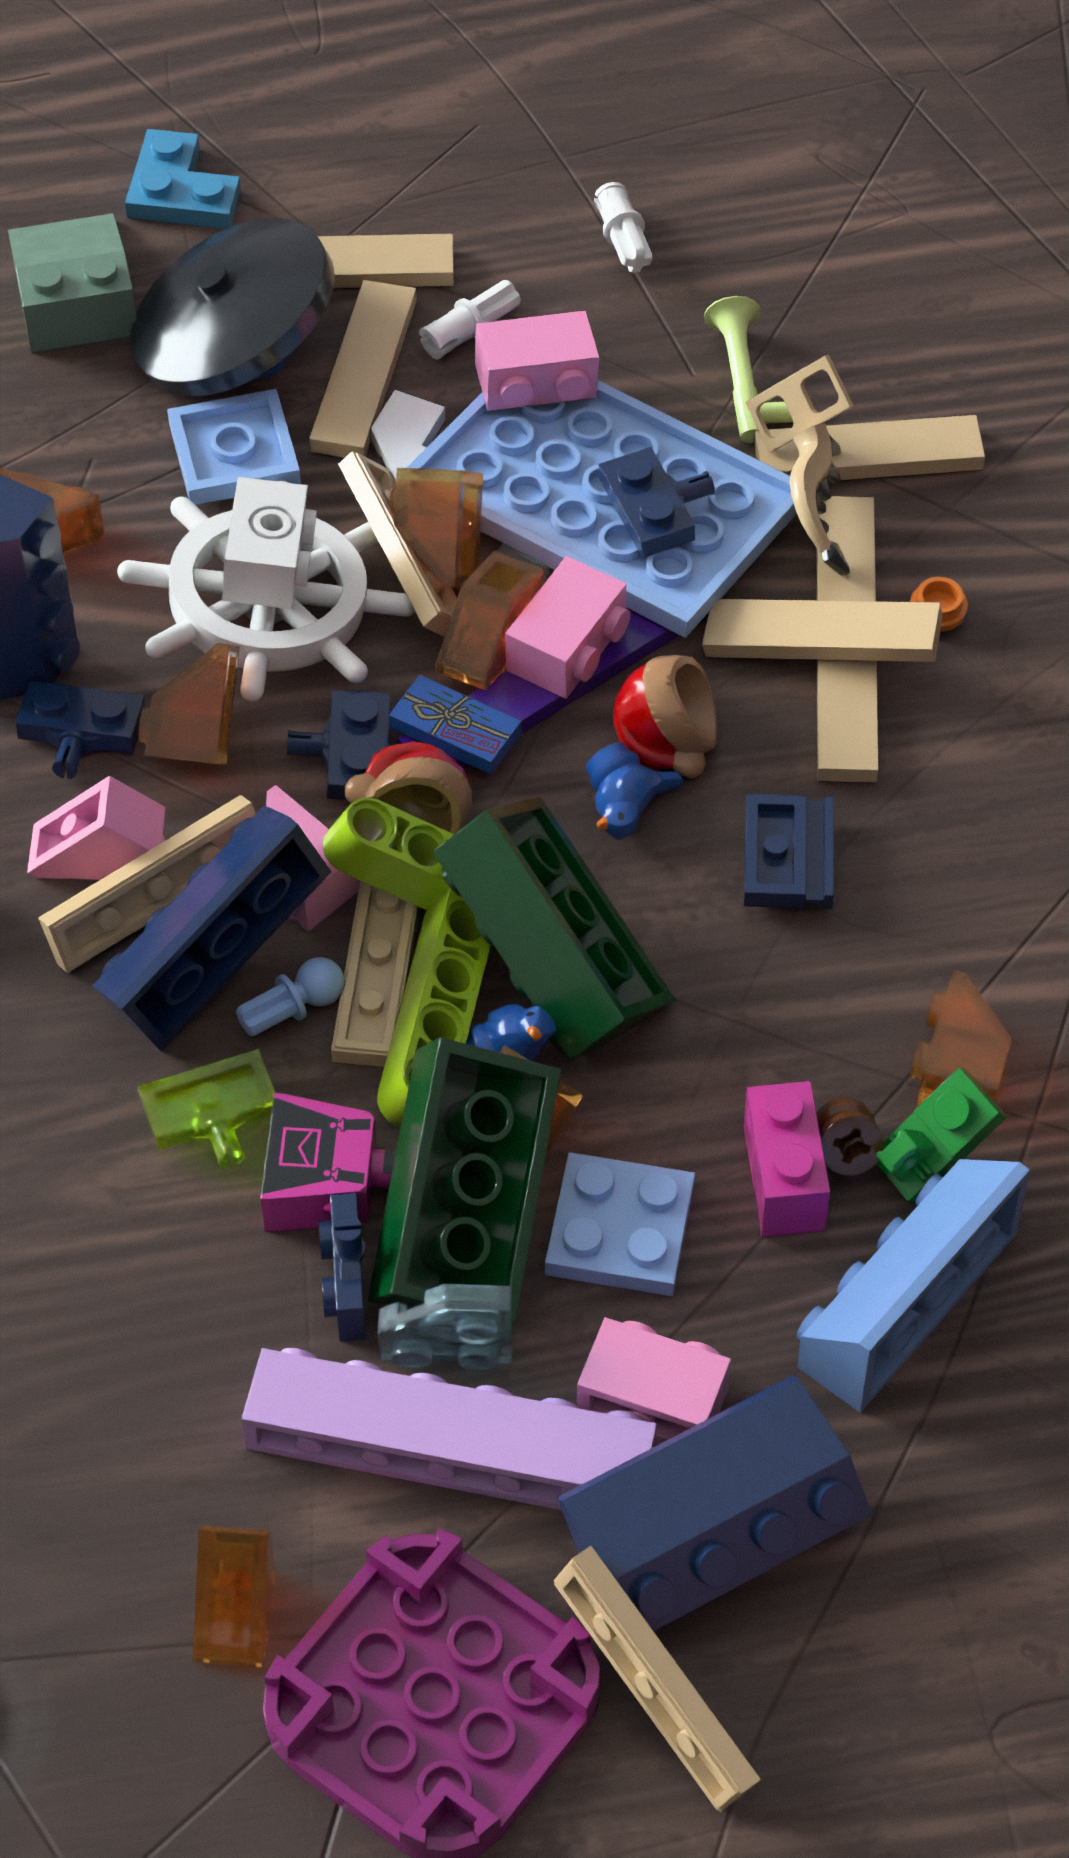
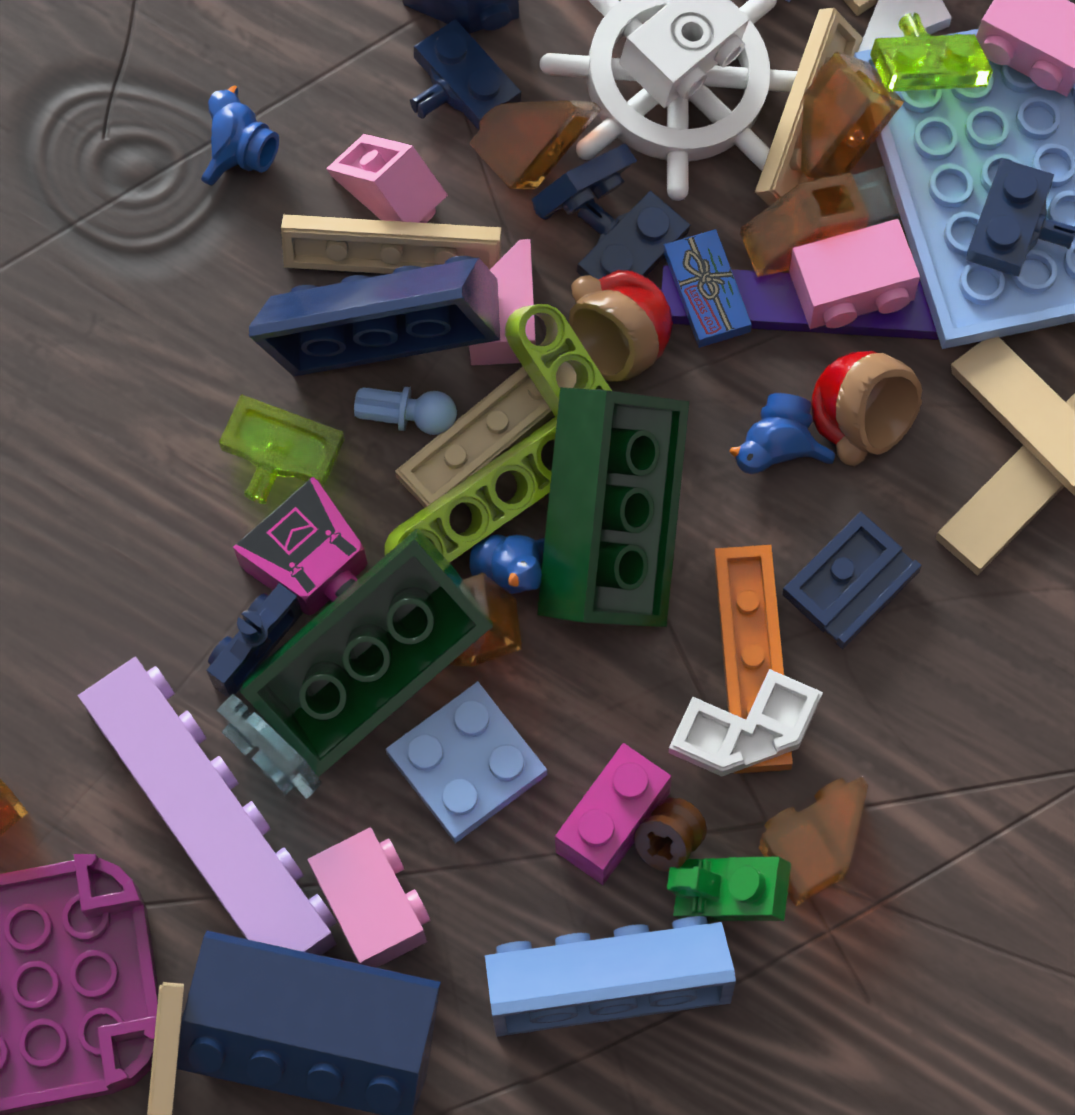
camera: 45 degrees right, 15 degrees up
(276, 722) = (576, 186): none -> dark blue plate
(473, 432) = (929, 61): none -> clear neon green plate
(773, 965) = (749, 631): none -> orange plate
(824, 1031) = (730, 743): none -> white tile

